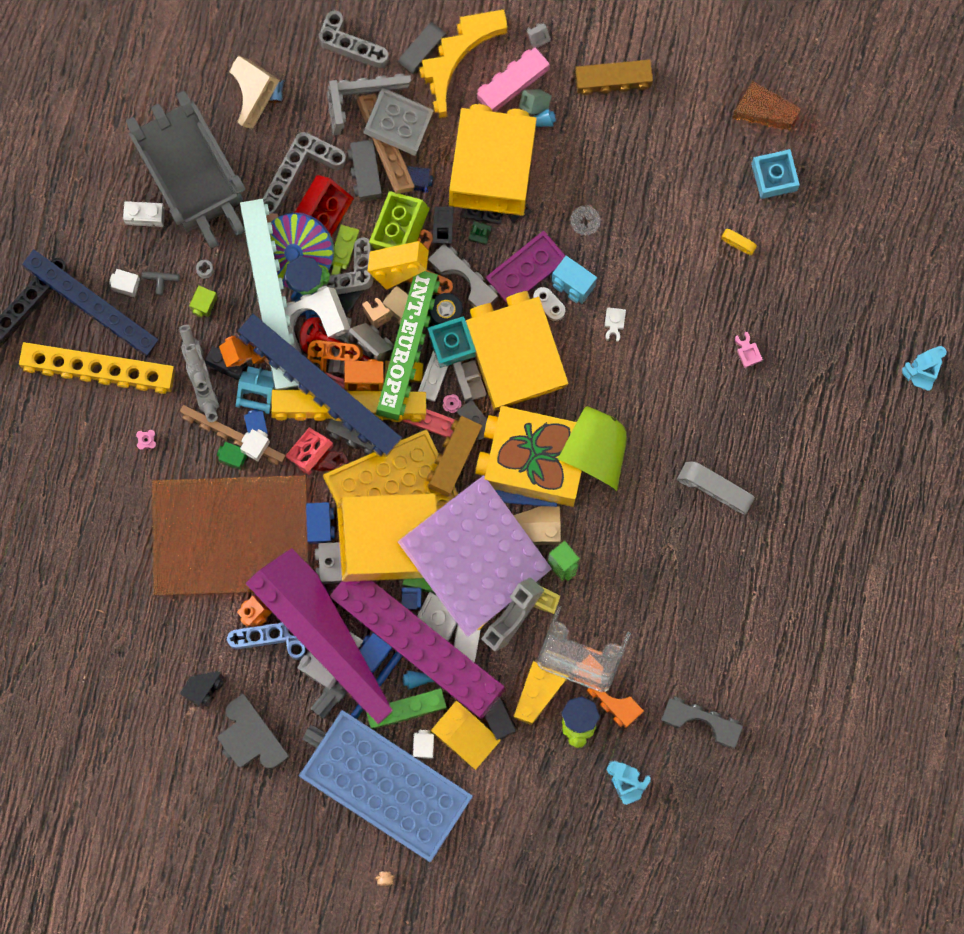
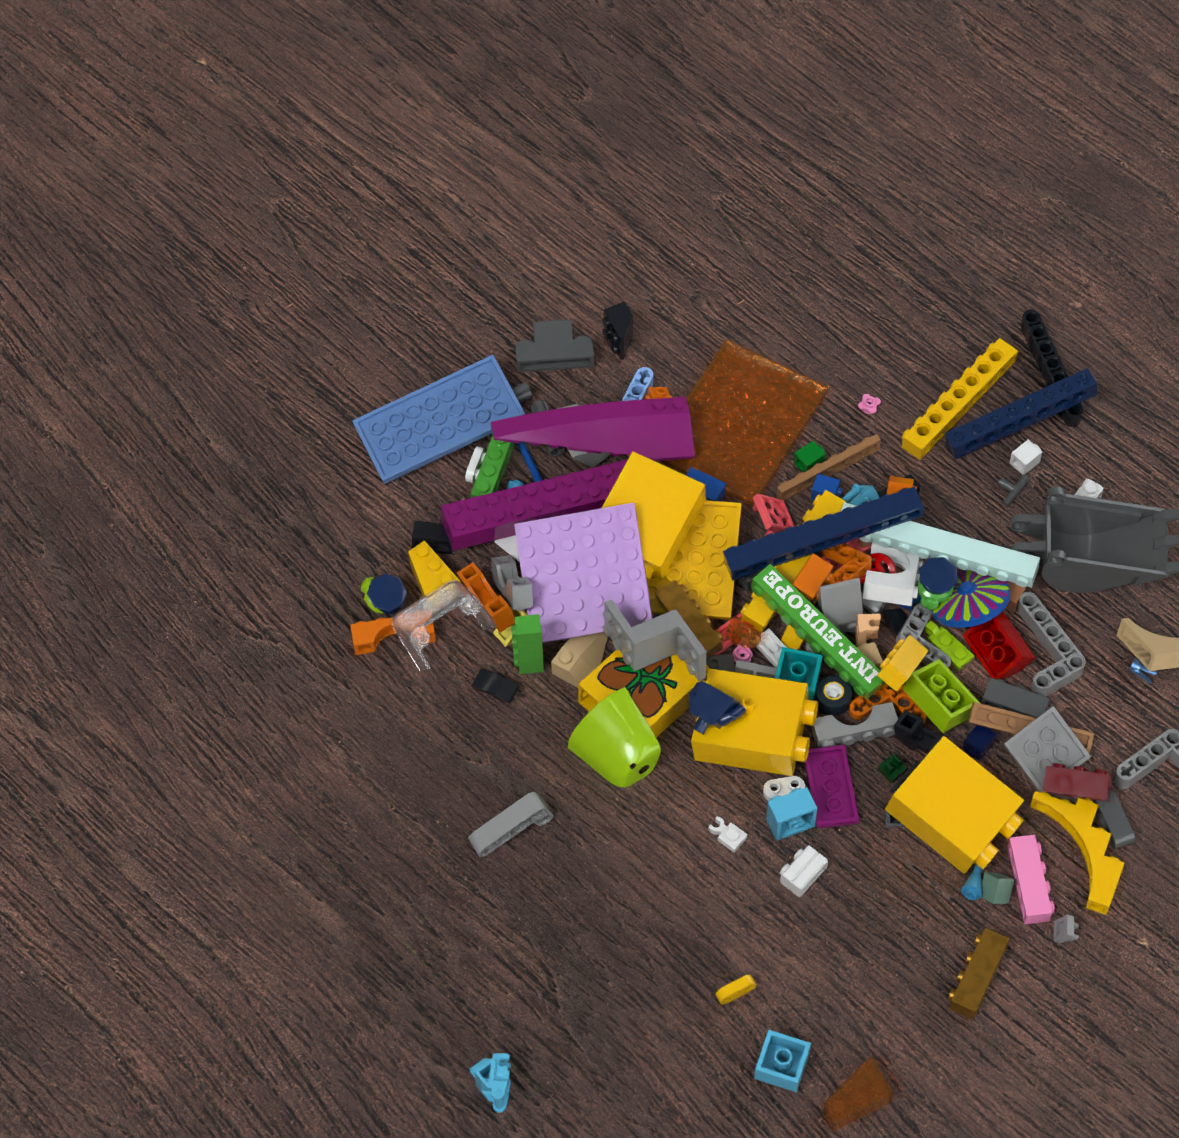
camera: 125 degrees right, 20 degrees down
(198, 374) = (901, 458): light grey pin -> none
(200, 265) = (1000, 533): light grey bush -> none
(203, 302) = (969, 507): lime brick -> none
(254, 444) = (805, 468): white brick -> none
(328, 463) = (752, 529): clear red piece -> none
(362, 85) = (1099, 708): light grey bracket -> none
(374, 651) = (556, 462): blue brick -> none
(385, 879) = (364, 383): light nougat plate -> none
(400, 729) = (475, 465): none -> white plate
(416, 81) = (1077, 782): none -> dark red brick
(423, 744) = (452, 467): white brick -> none
(437, 408) = (743, 633): none -> clear orange rock
(465, 735) = (427, 501): yellow slope -> none
(509, 454) = (654, 640): none -> light grey bracket
(534, 377) = (714, 706): none -> dark blue torso
(535, 628) = (494, 605): none -> orange arch
(590, 213) = (840, 858): clear gear -> none
(603, 577) = (495, 685): none -> black slope
(611, 248) = (803, 870): none -> white brick
(626, 781) = (303, 598): medium azure piece -> none
(725, 731) = (289, 705): dark grey arch -> none
(748, 352) = (619, 932): bright pink plate -> none

